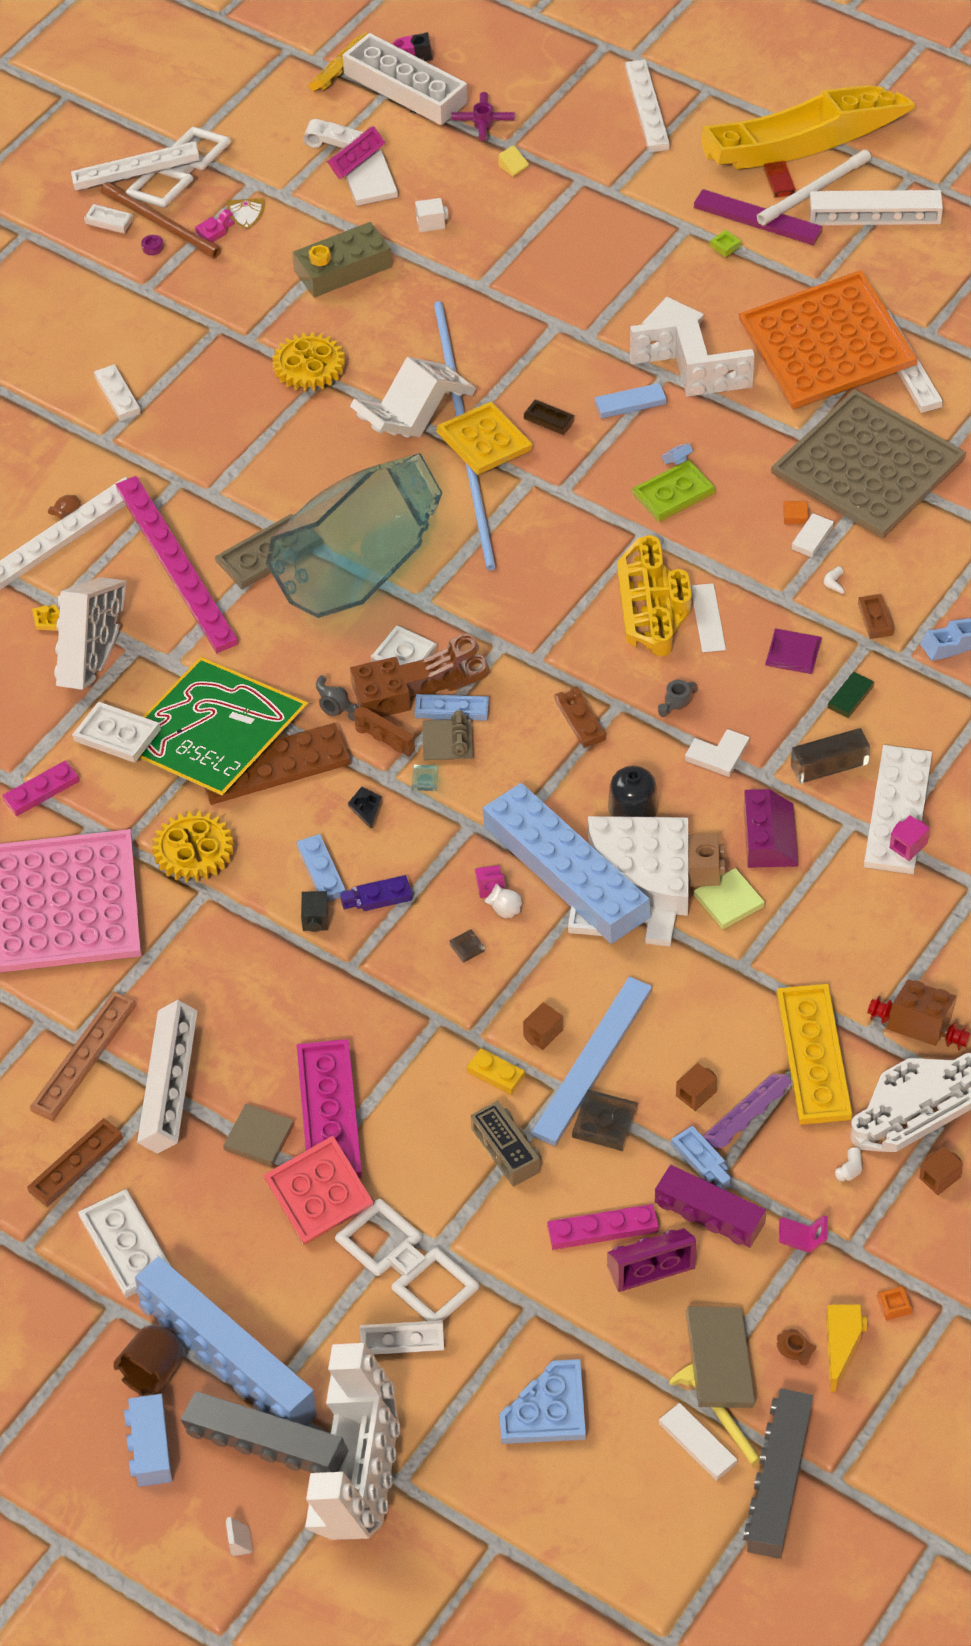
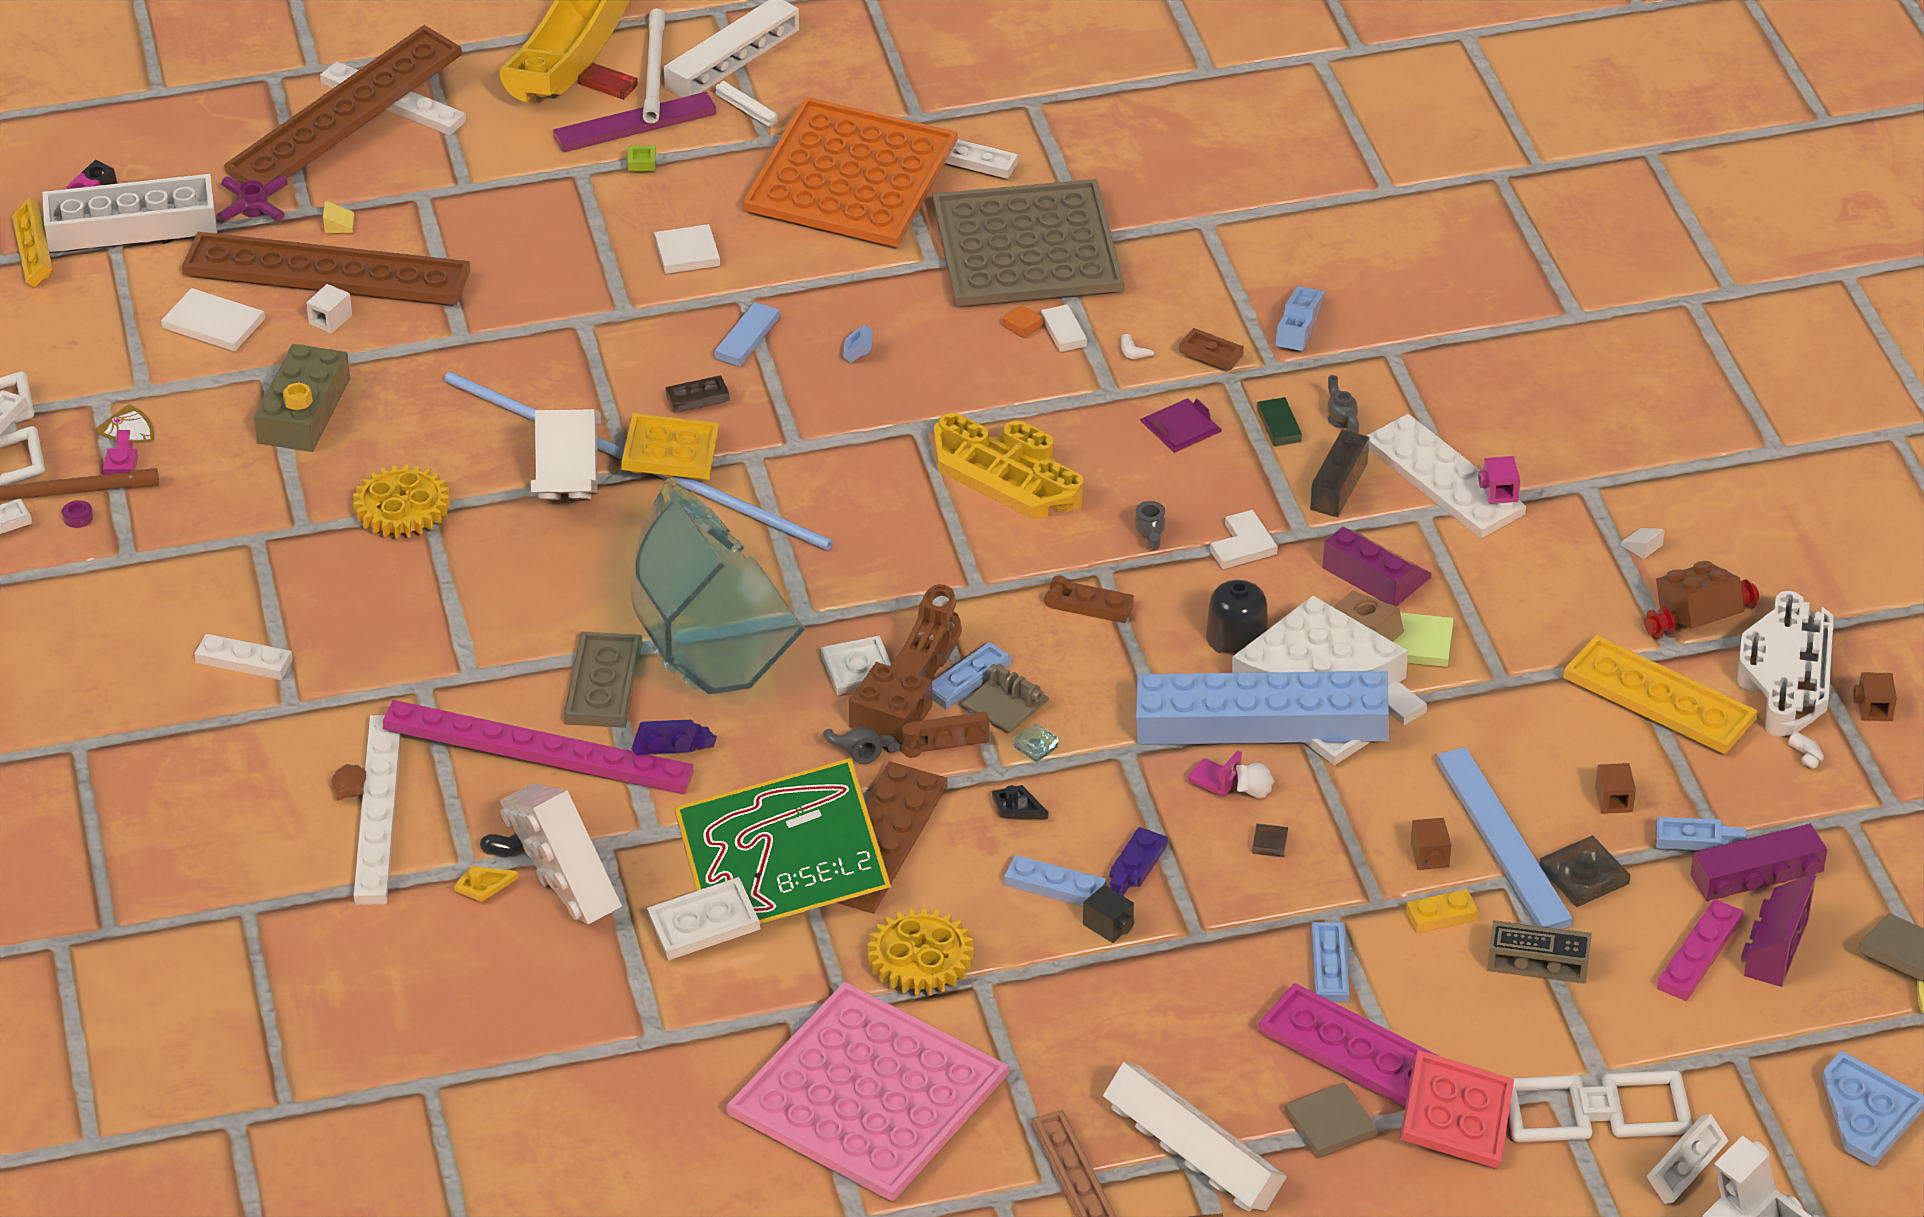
camera: 50 degrees left, 10 degrees down
(40, 788) = (698, 1021): dark pink plate -> none
(241, 613) = (671, 737): none -> dark purple hinge
(328, 132) = (108, 310): white plate -> none
(356, 152) = (179, 301): dark pink plate -> none
(393, 1045) = (1330, 961): none -> light blue tile
(465, 189) = (317, 265): none -> dark orange plate
(602, 92) = (345, 107): none -> dark orange plate
(673, 490) = (894, 376): lime tile -> none
(684, 342) = (761, 257): white bracket -> none
(708, 617) = (1082, 455): white sticker -> none
(747, 1109) = (1677, 771): medium lavender plate -> none
(803, 1236) = (1852, 826): dark pink bracket -> none
(836, 252) = (746, 104): none -> white axle
(896, 716) = (1341, 407): none -> dark grey piece
(954, 952) = (1644, 541): none -> white slope

